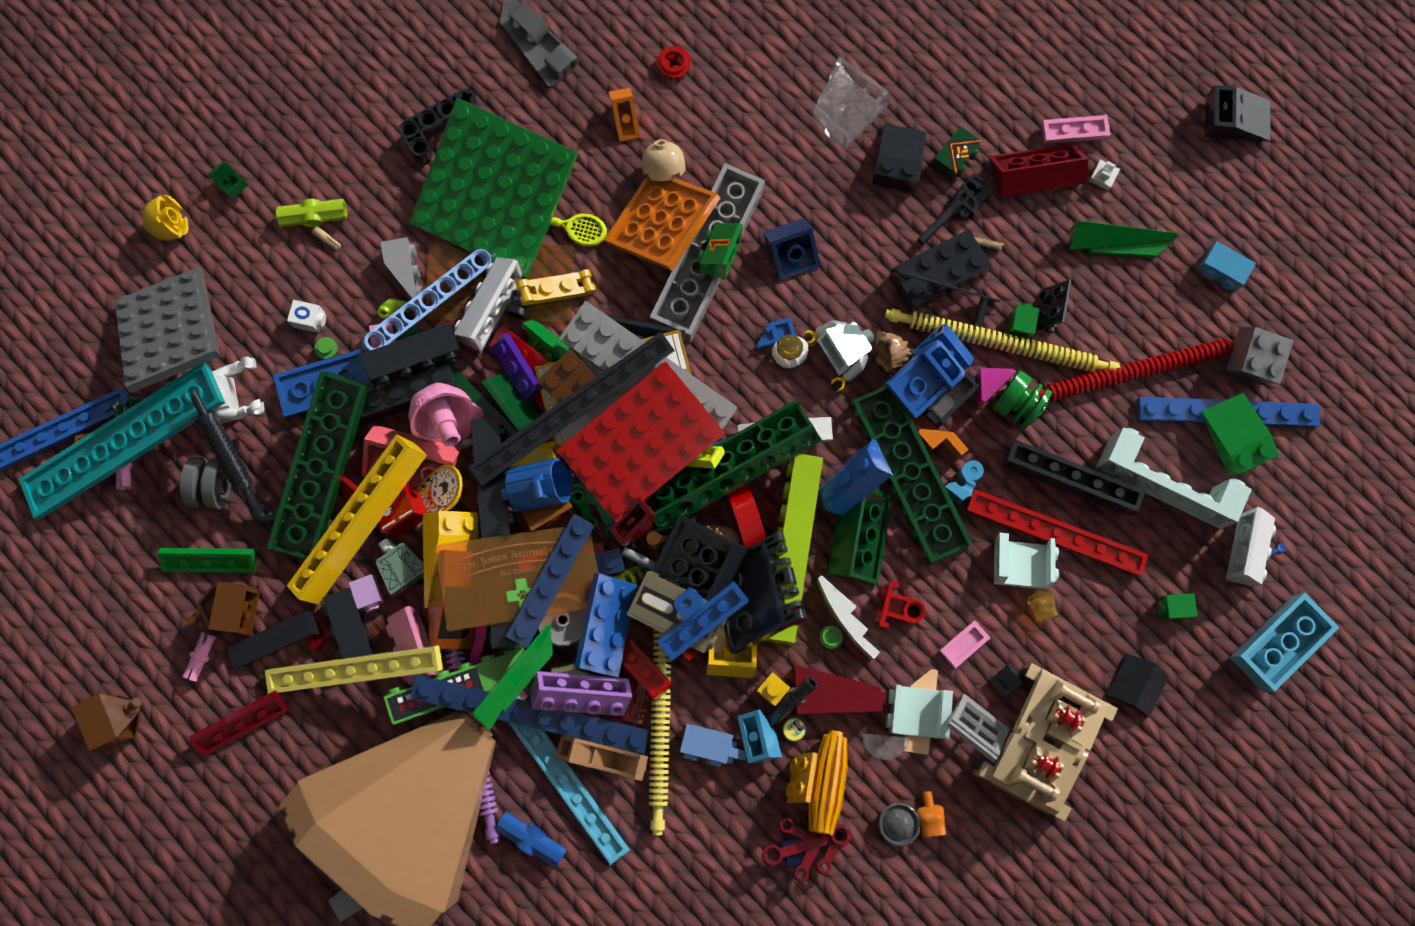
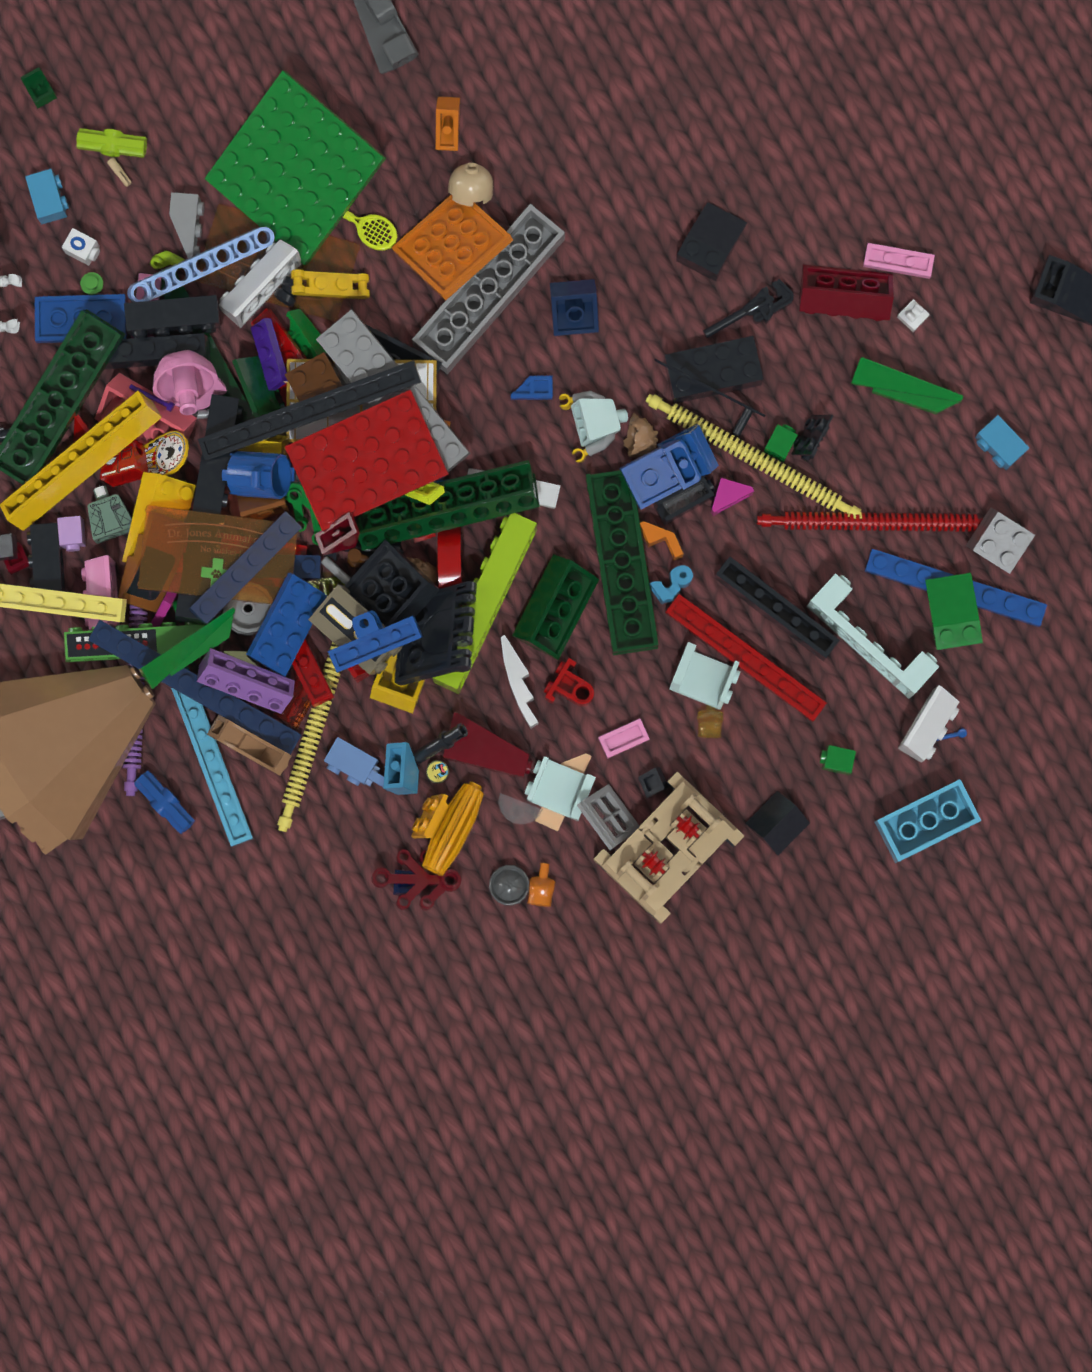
camera: 20 degrees right, 5 degrees up
(261, 278) = (46, 196): none -> dark azure brick
(425, 132) = (262, 84): black beam -> none
(432, 443) = (170, 405): none -> dark purple piece
(670, 54) = (513, 71): red gear -> none
(721, 249) = (498, 292): green slope -> none
(773, 689) = (427, 728): yellow brick -> none
(790, 351) = (541, 409): hair -> none
(831, 637) = (498, 696): bright green plate -> none
(849, 103) = (674, 173): clear wedge -> none
(854, 479) = (561, 553): blue slope -> none
(956, 154) = (769, 254): dark green brick -> none
(989, 244) = (771, 353): tan piece -> none
(1022, 400) = (750, 520): green wheel -> none

